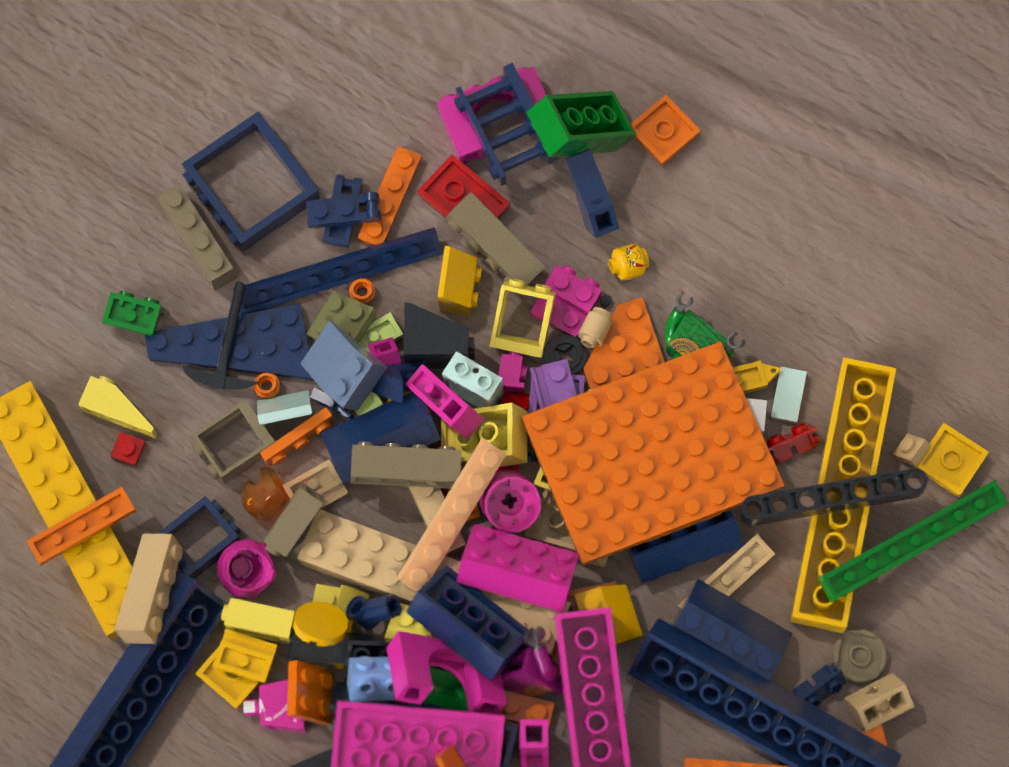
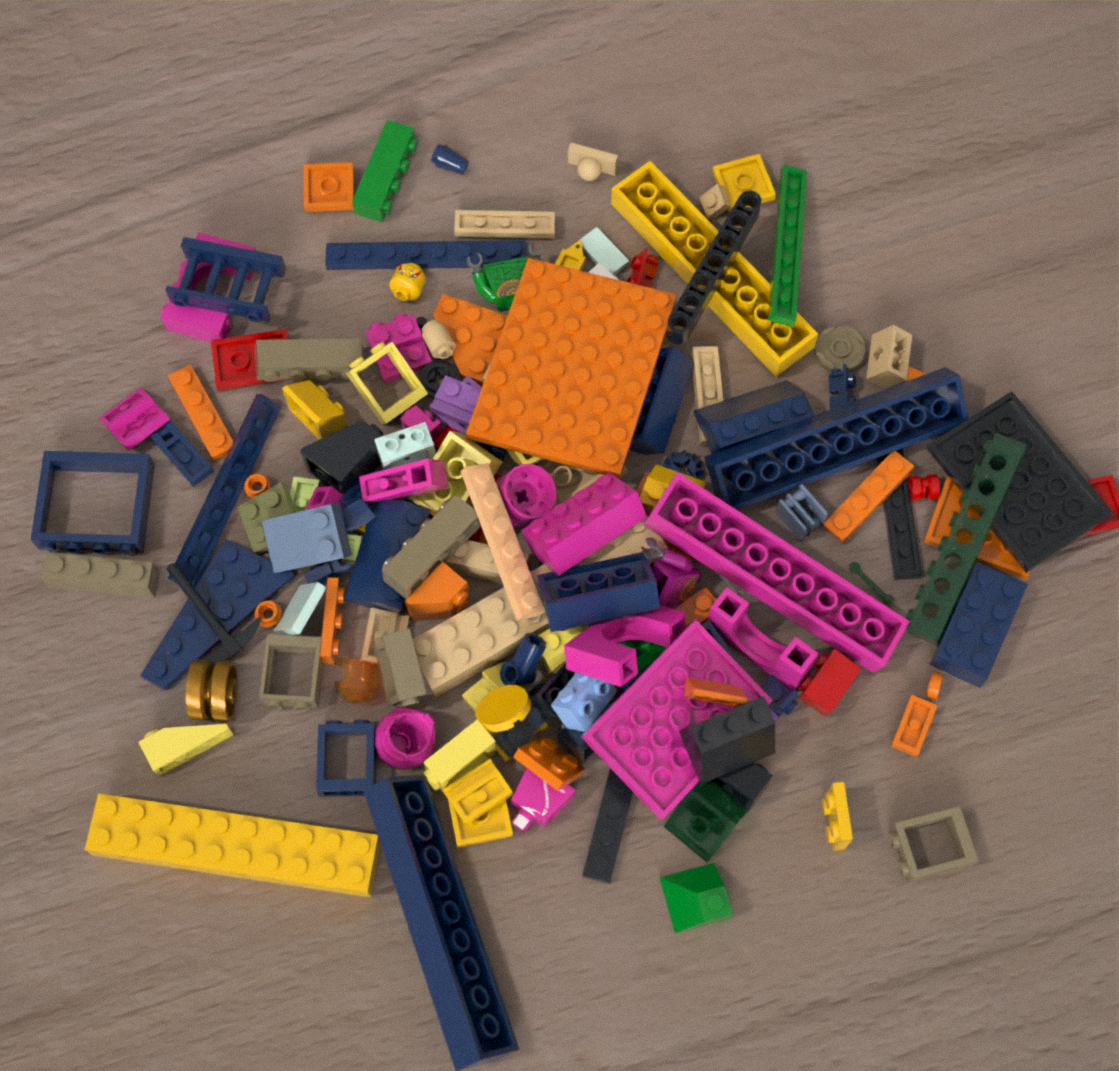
camera: 55 degrees left, 5 degrees down
(81, 526) = (259, 840): orange plate -> none
(128, 449) = (223, 762): red plate -> none
(132, 314) = (116, 671): green bracket -> none
(149, 588) = (360, 822): tan brick -> none
(170, 395) = (211, 690): none -> pearl gold wheel
(342, 152) = (134, 419): none -> dark pink slope
(343, 210) = (182, 449): dark blue plate -> none
(378, 502) = (439, 596): none -> orange slope
(580, 123) = (274, 227): green brick -> none
(591, 194) = (335, 263): dark blue slope -> none
(651, 600) = (680, 459): none -> dark blue gear
(671, 258) = (424, 254): none -> dark blue plate
(672, 746) = (801, 522): none -> sand blue piece
(714, 162) = (385, 171): none -> green brick
(747, 296) = (504, 224): none -> tan plate
(769, 203) = (448, 159): none -> dark blue cone
(863, 320) = (591, 161): none -> tan tile

